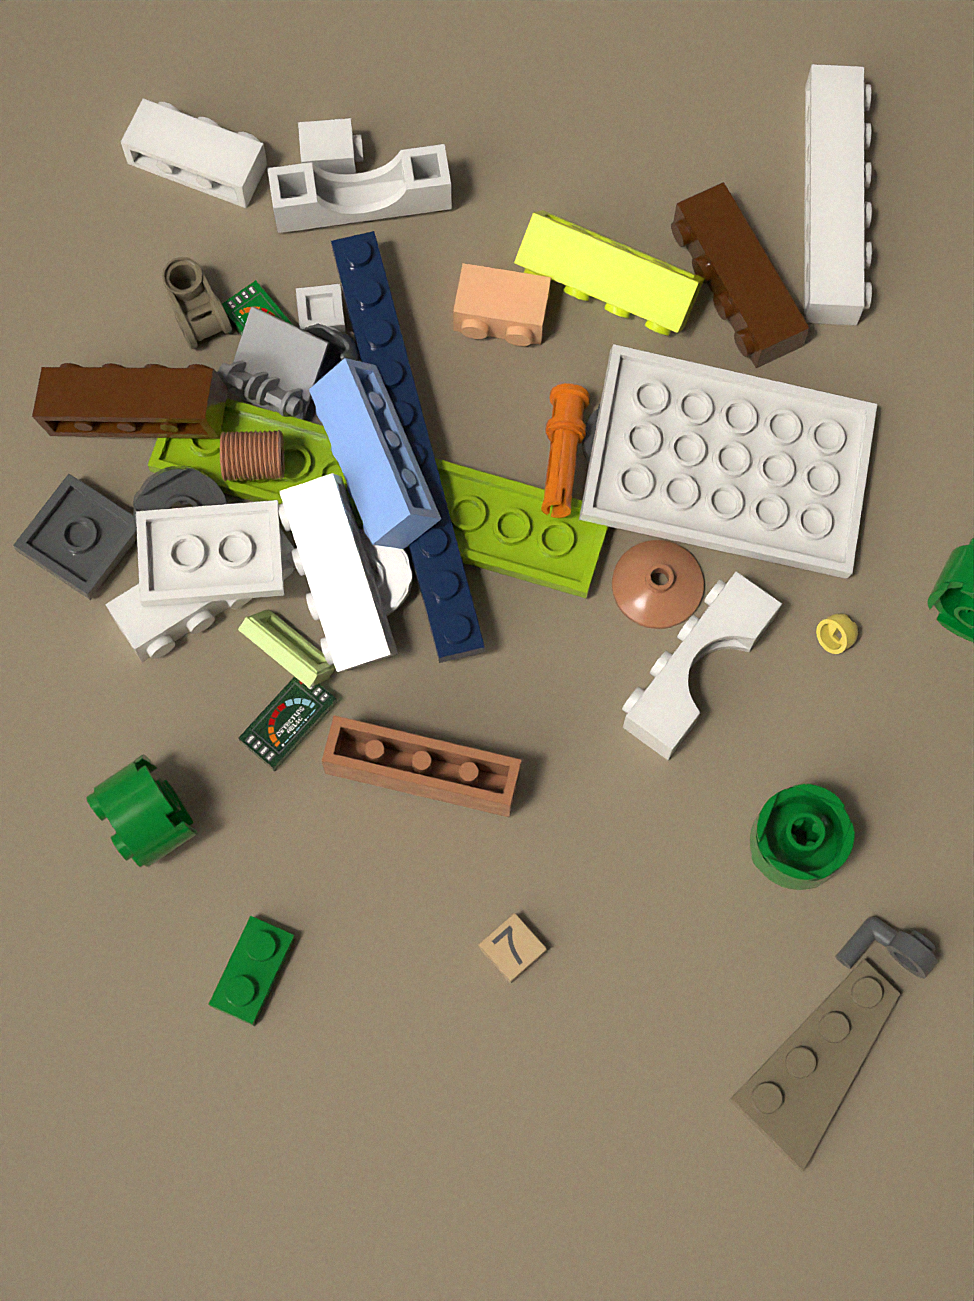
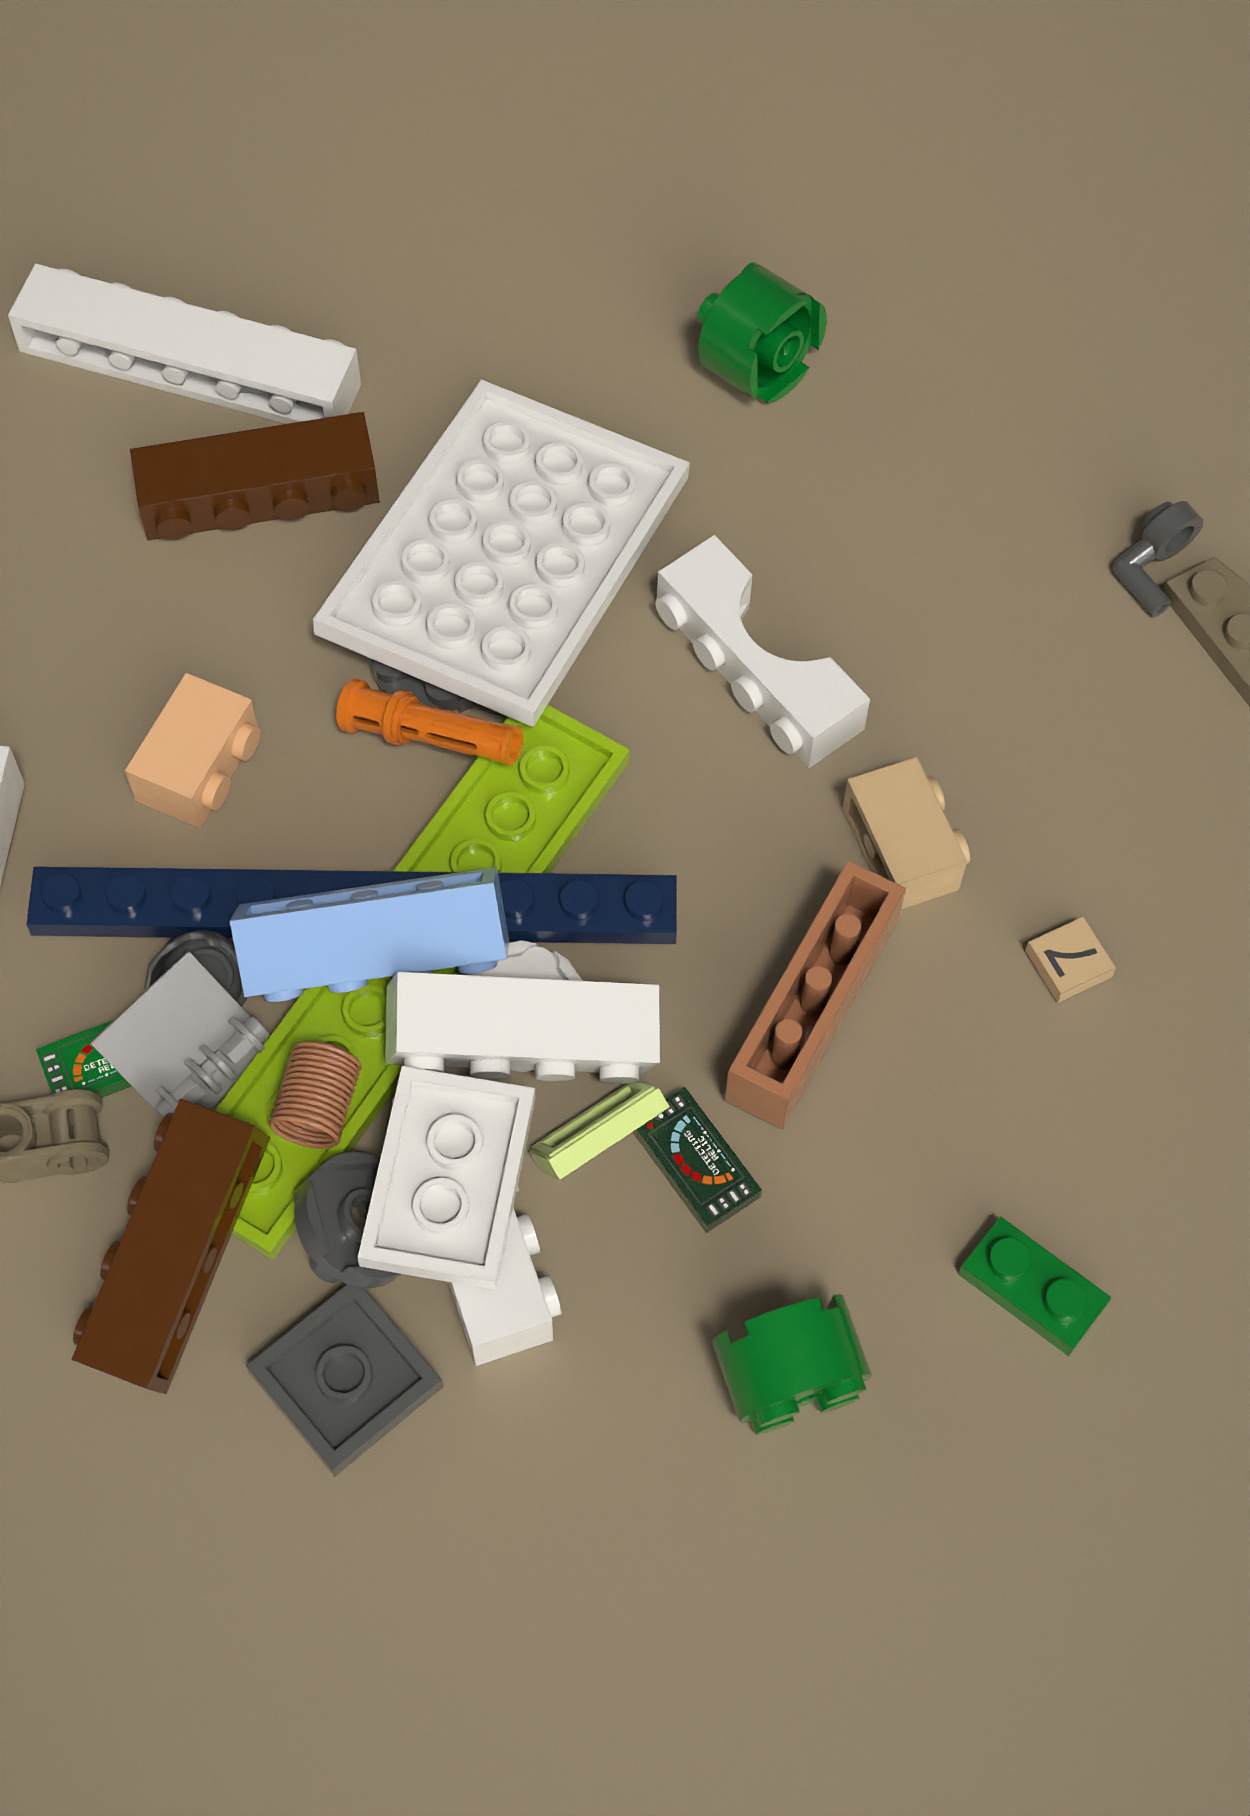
camera: 75 degrees left, 10 degrees down
(320, 306) = (112, 974): white plate -> none
(576, 804) = (905, 832): none -> tan brick
(609, 271) = (198, 612): neon yellow brick -> none
(654, 604) = (632, 701): nougat dish -> none
(827, 835) = (1010, 597): green brick -> none
(829, 627) = (768, 497): light yellow hinge -> none

